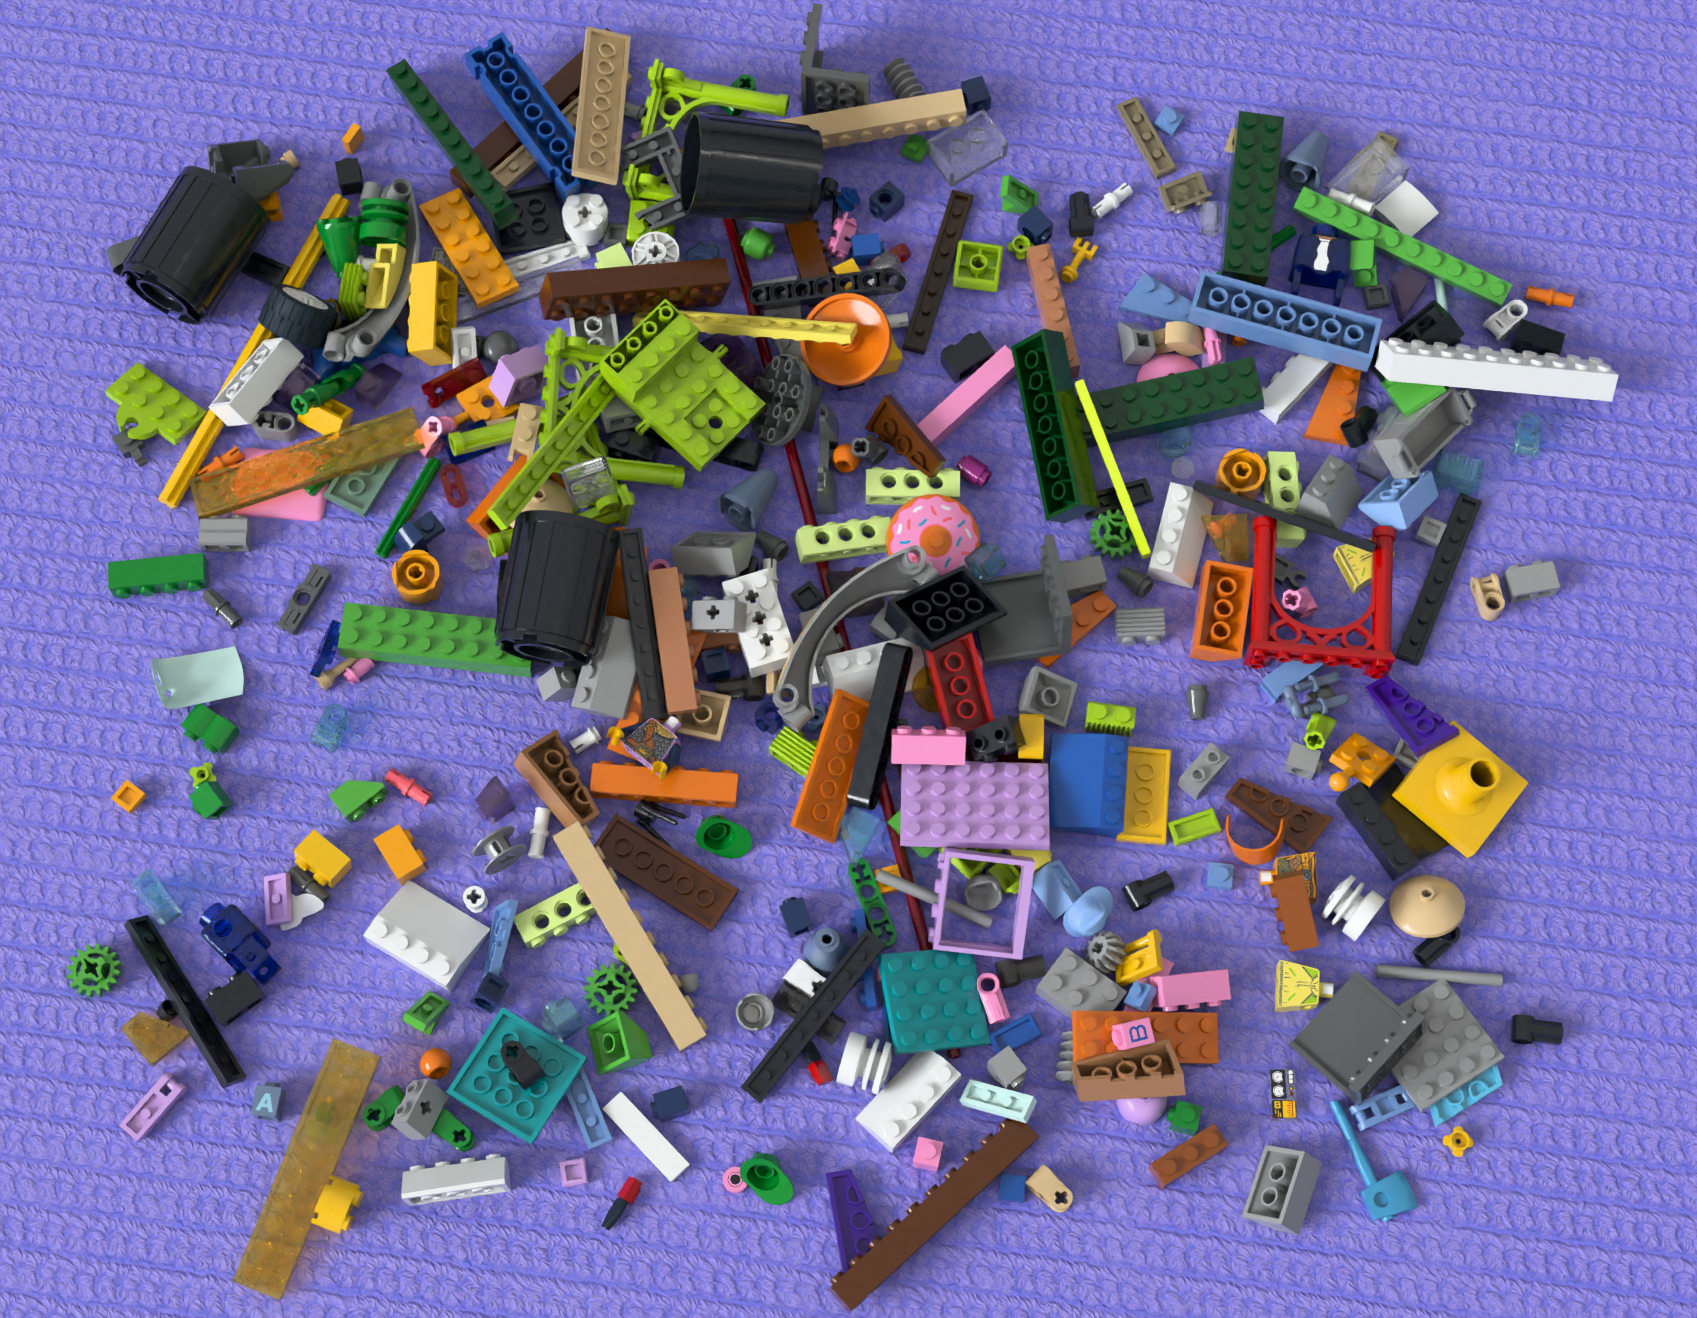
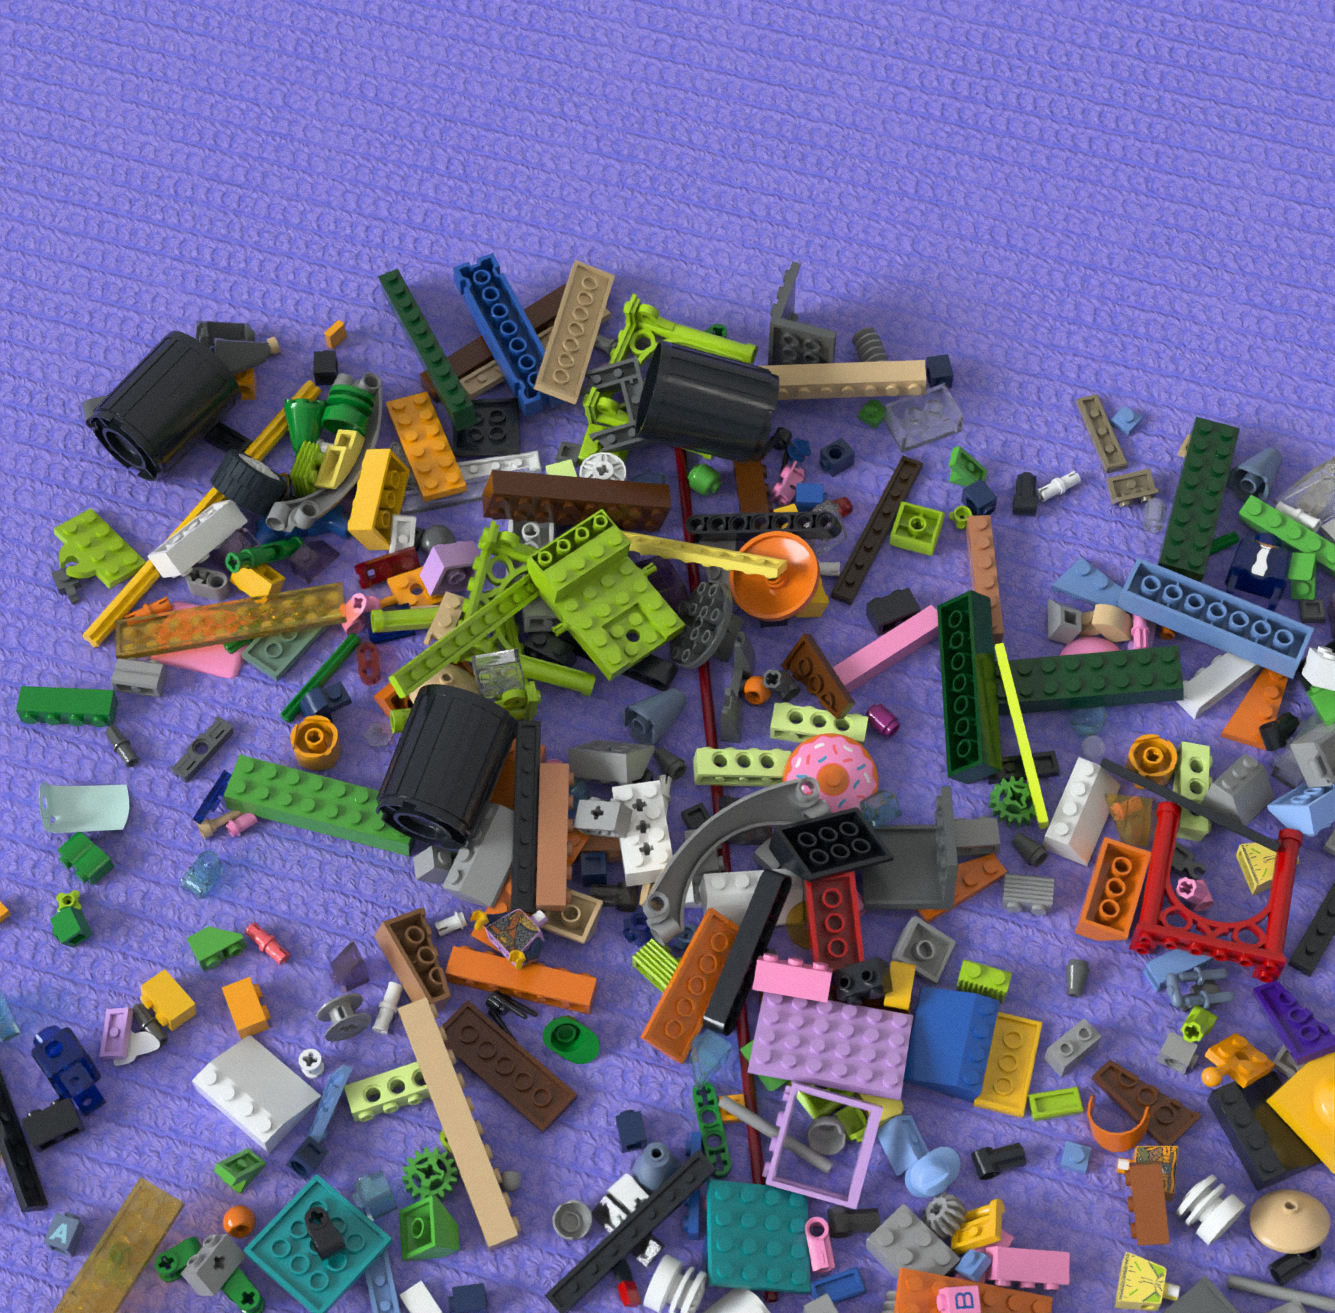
camera: 10 degrees right, 10 degrees down
(585, 218) = (541, 434): white brick -> none
(1070, 273) = (1006, 547): yellow hinge -> none

